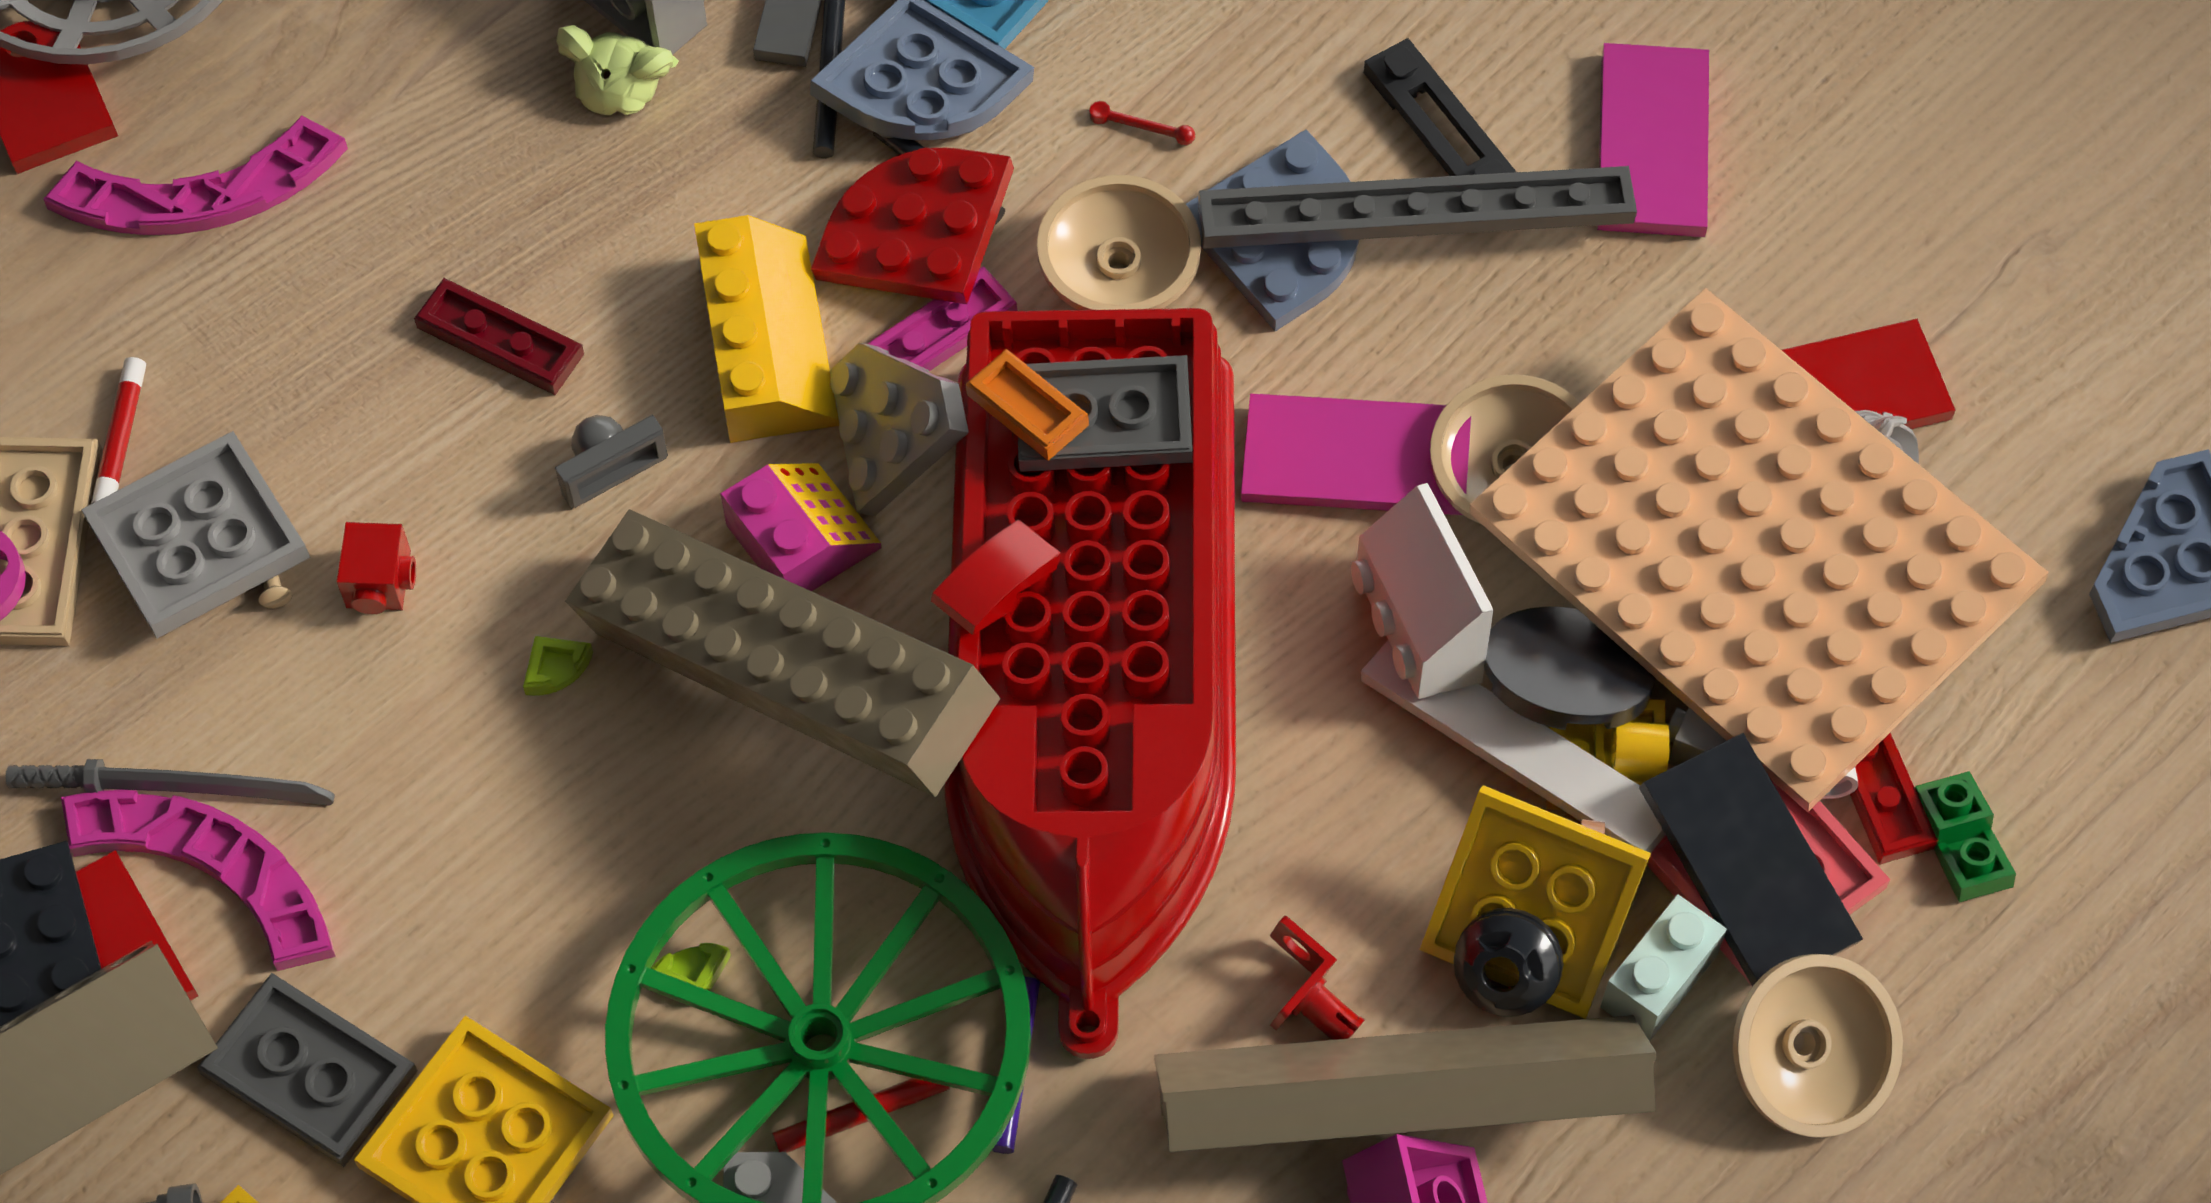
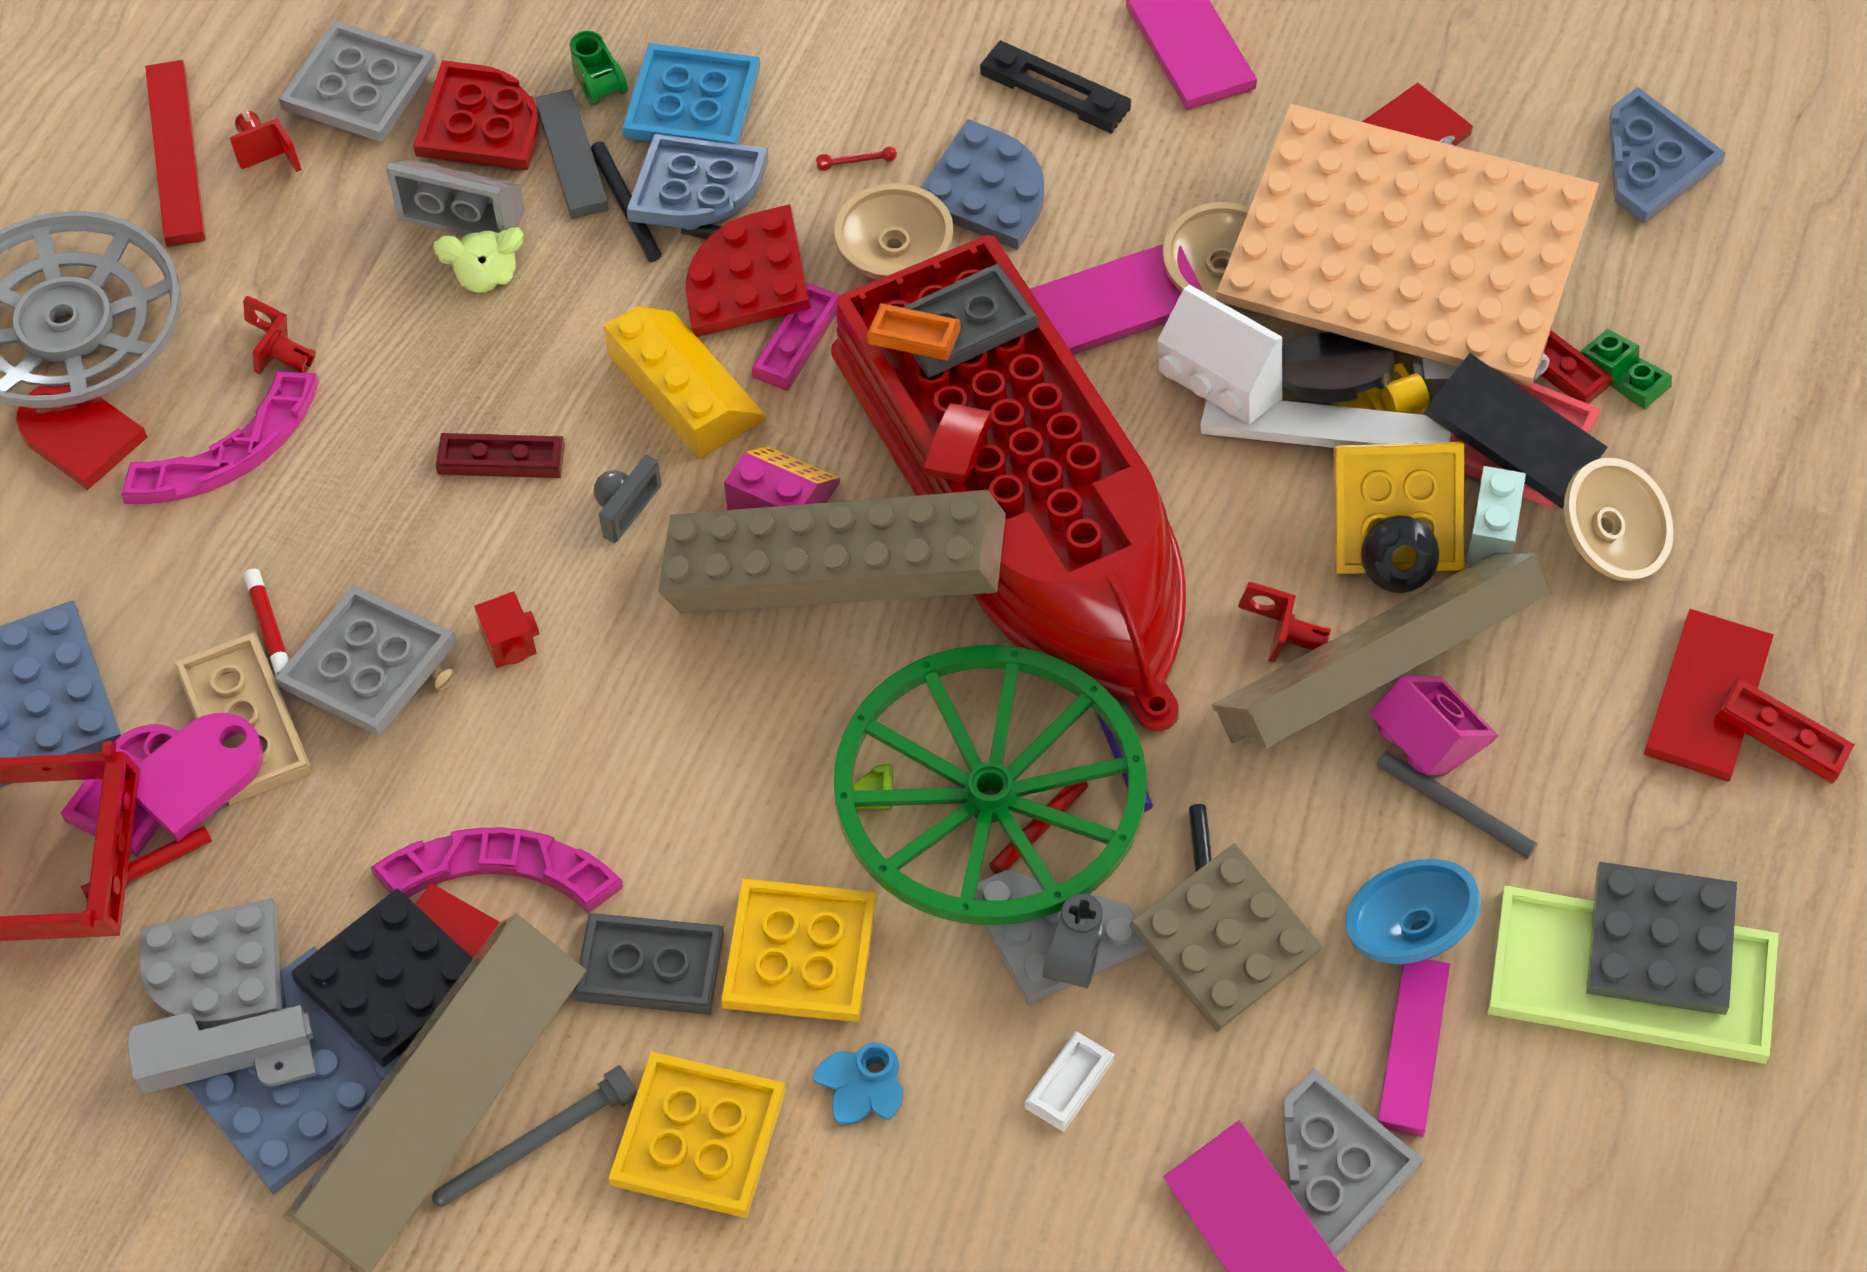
camera: 25 degrees left, 5 degrees down
(97, 777) = (390, 843): dark grey sword -> none
(317, 78) = (275, 341): none -> red bracket
(555, 664) = (665, 641): lime tile -> none
(892, 422) = (812, 393): light grey plate -> none
(1416, 207) = (1070, 134): dark grey plate -> none

